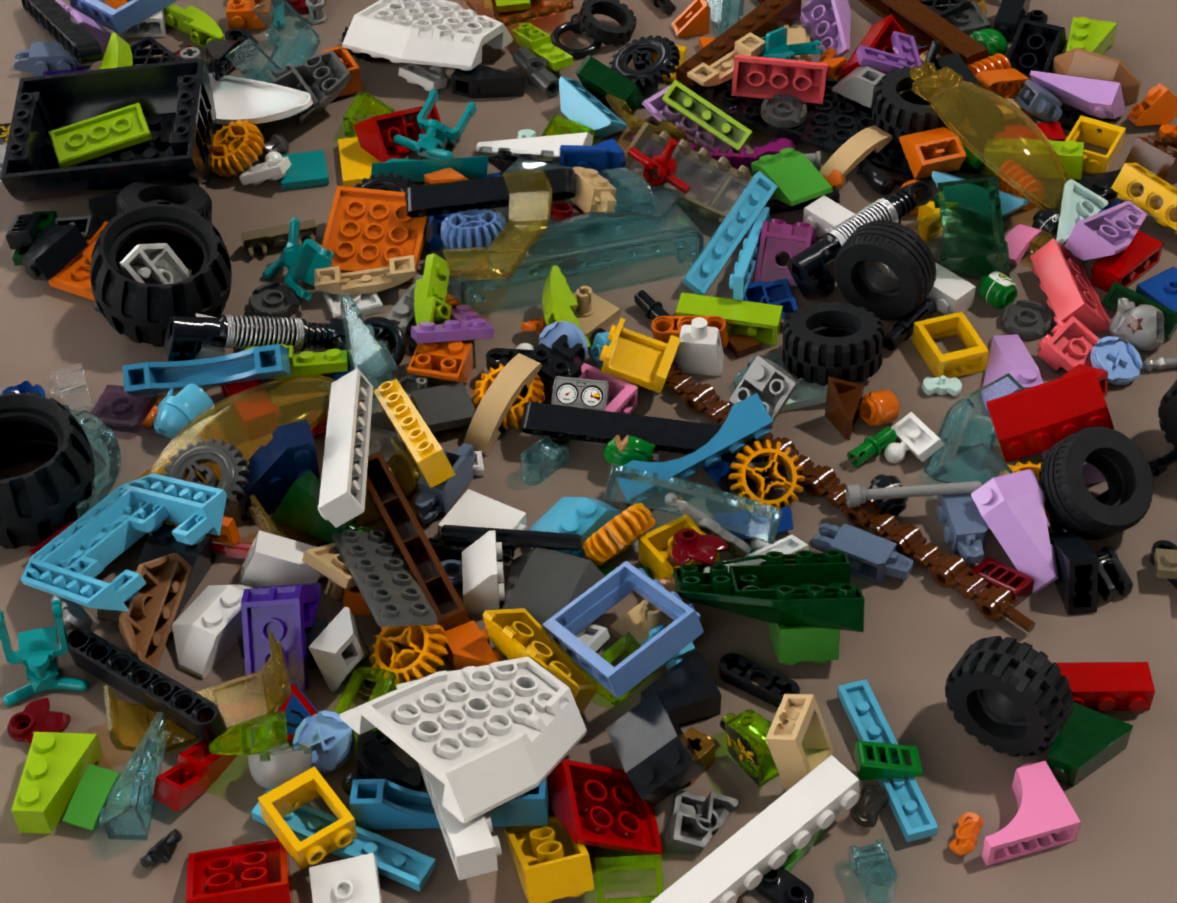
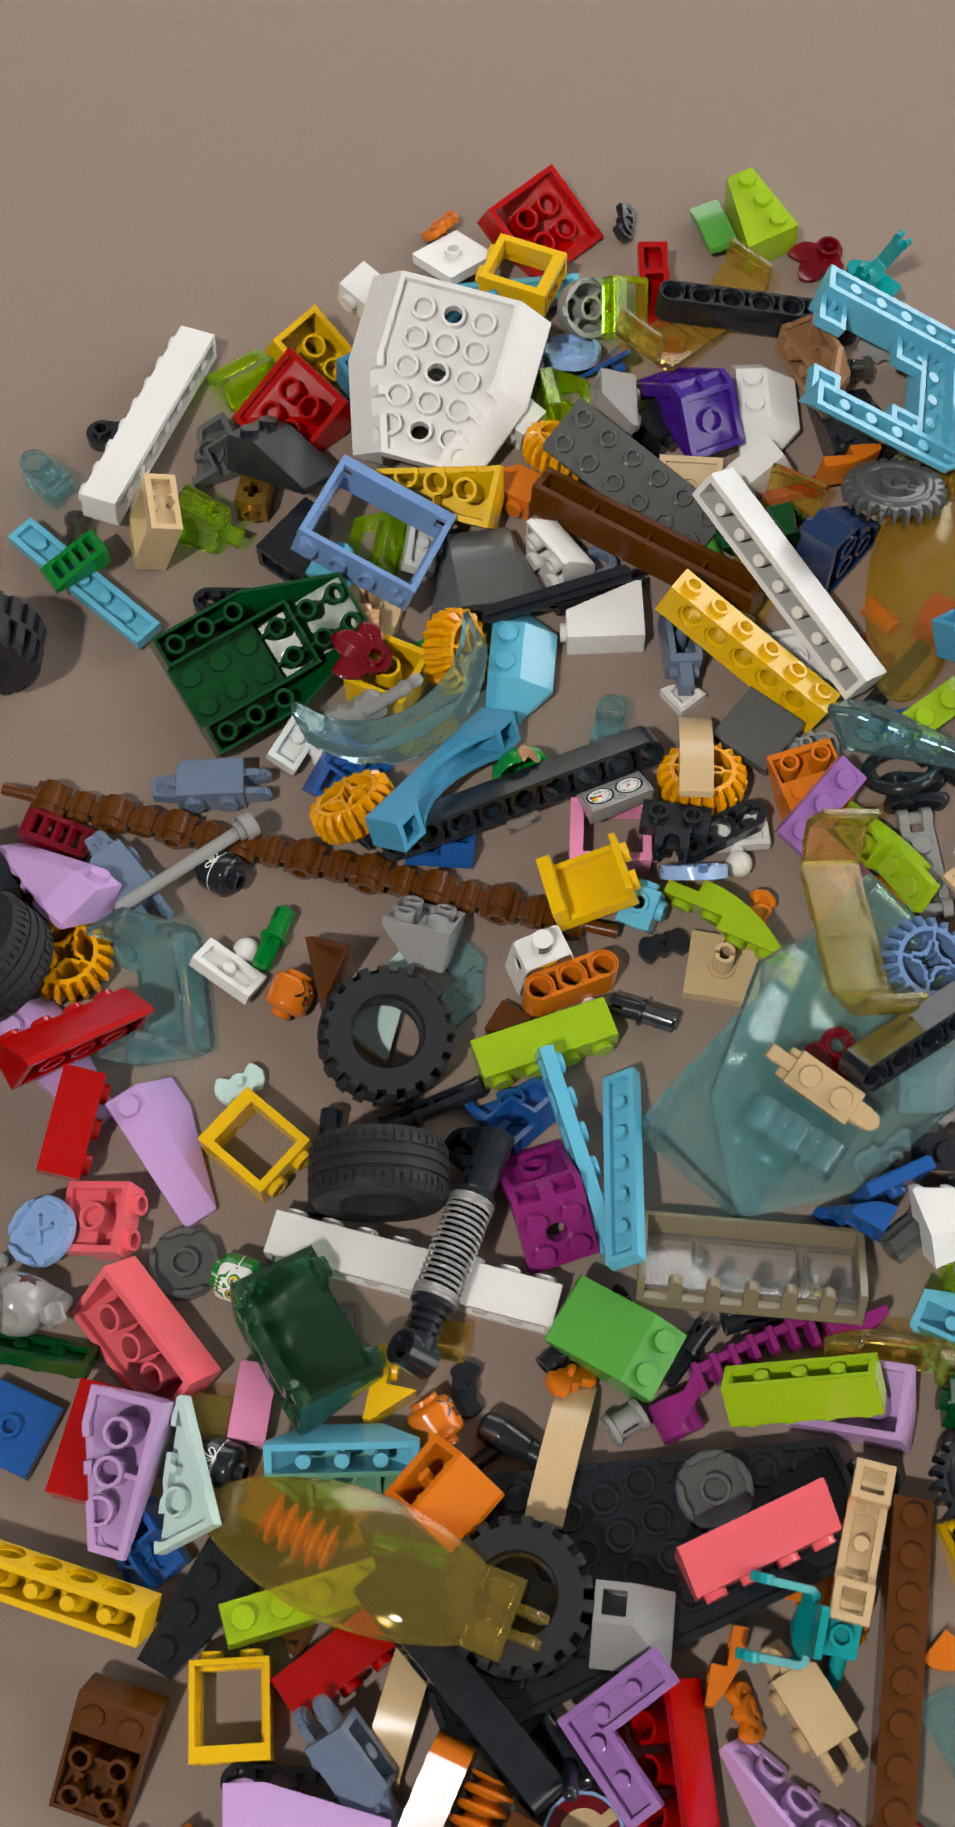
camera: 150 degrees right, 20 degrees up
(131, 798) = (674, 223): clear light blue wedge -> none
(666, 163) = (785, 1217): red bar -> none

